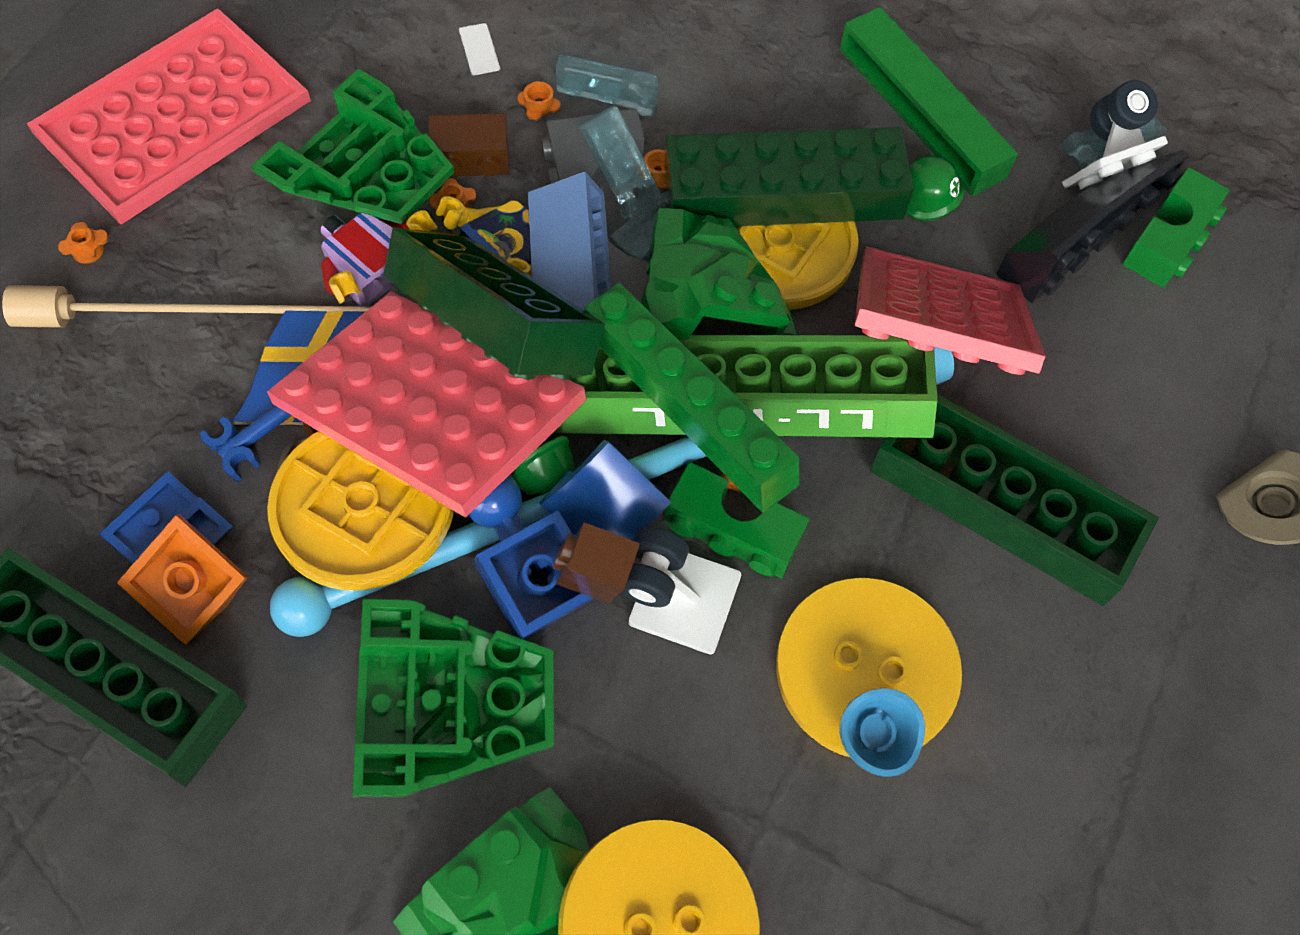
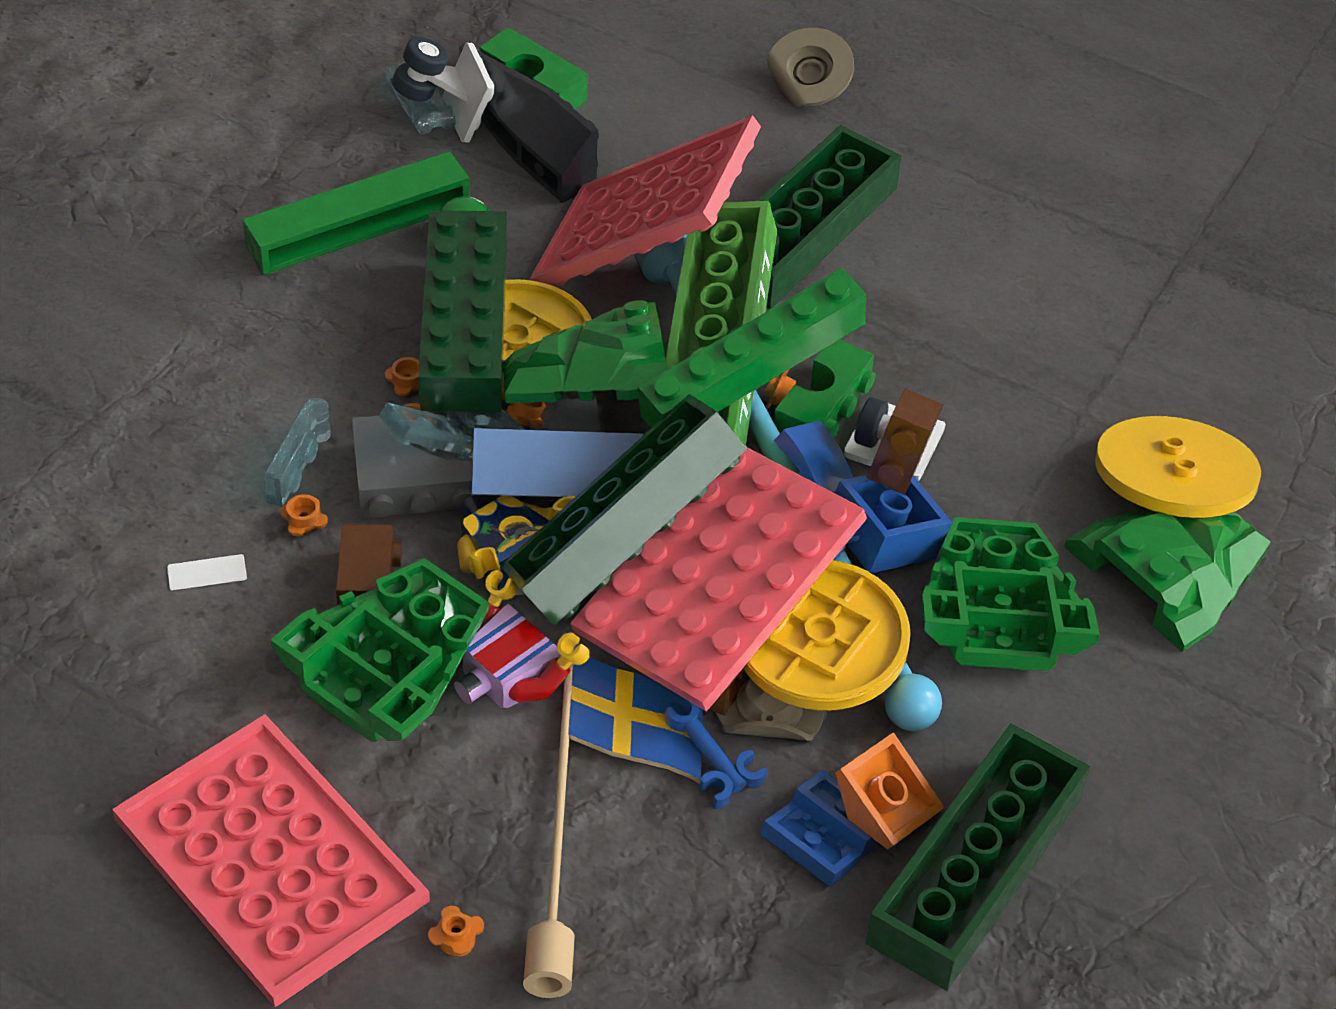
camera: 85 degrees left, 15 degrees down
(860, 640) = (952, 333): yellow plate -> none
(883, 731) = (1021, 312): dark azure helmet -> none

